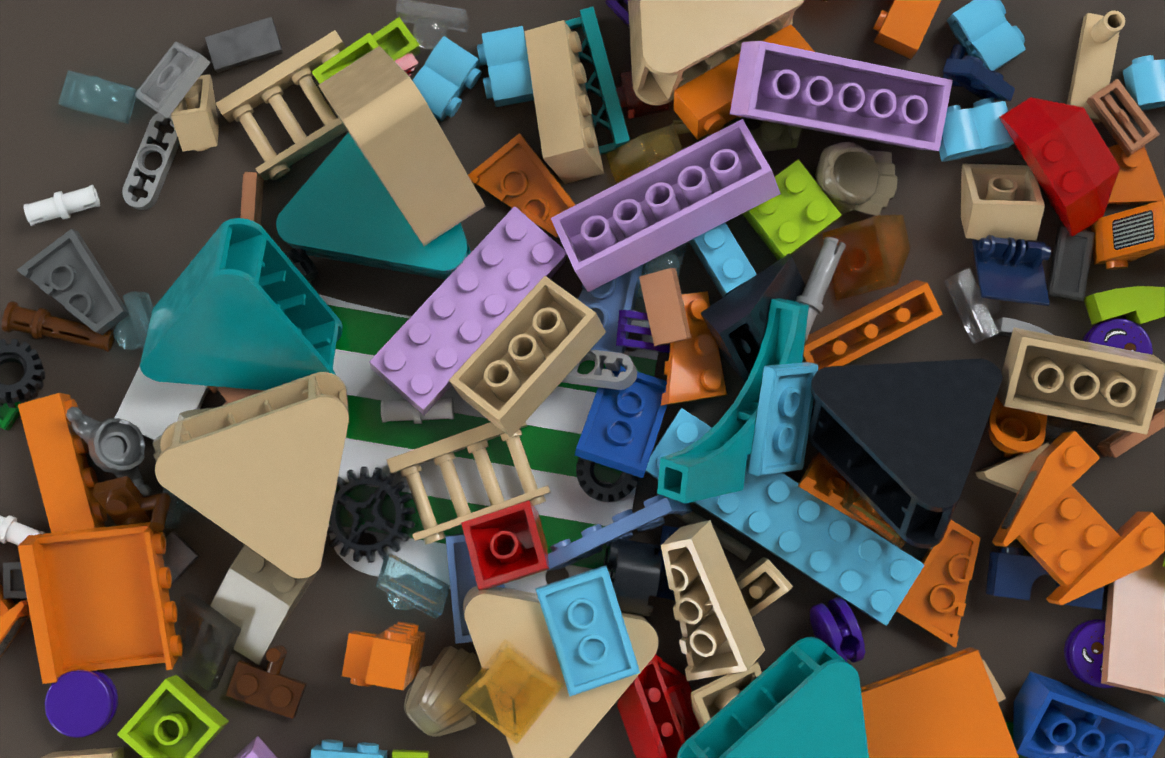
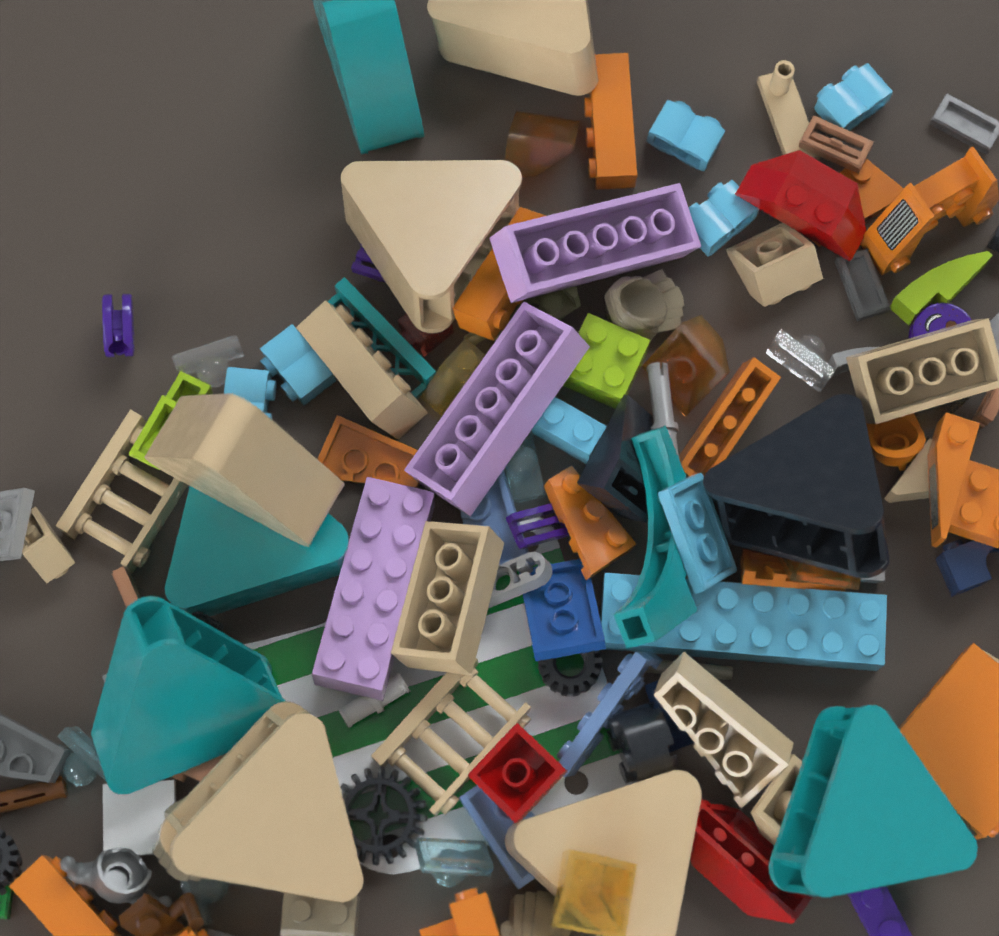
camera: 30 degrees left, 10 degrees down
(134, 180) = (16, 633): light grey beam -> none
(244, 44) = (53, 465): flat silver tile -> none
(587, 630) = (631, 804): medium azure tile -> none
(665, 307) = (543, 494): nougat tile -> none
(762, 585) = (760, 685): tan slope -> none
(838, 629) = (844, 688): dark purple head -> none
(941, 588) = (912, 613): orange wing -> none
(971, 74) = (697, 172): dark blue plate -> none
(1011, 269) = (816, 312): dark blue hinge -> none

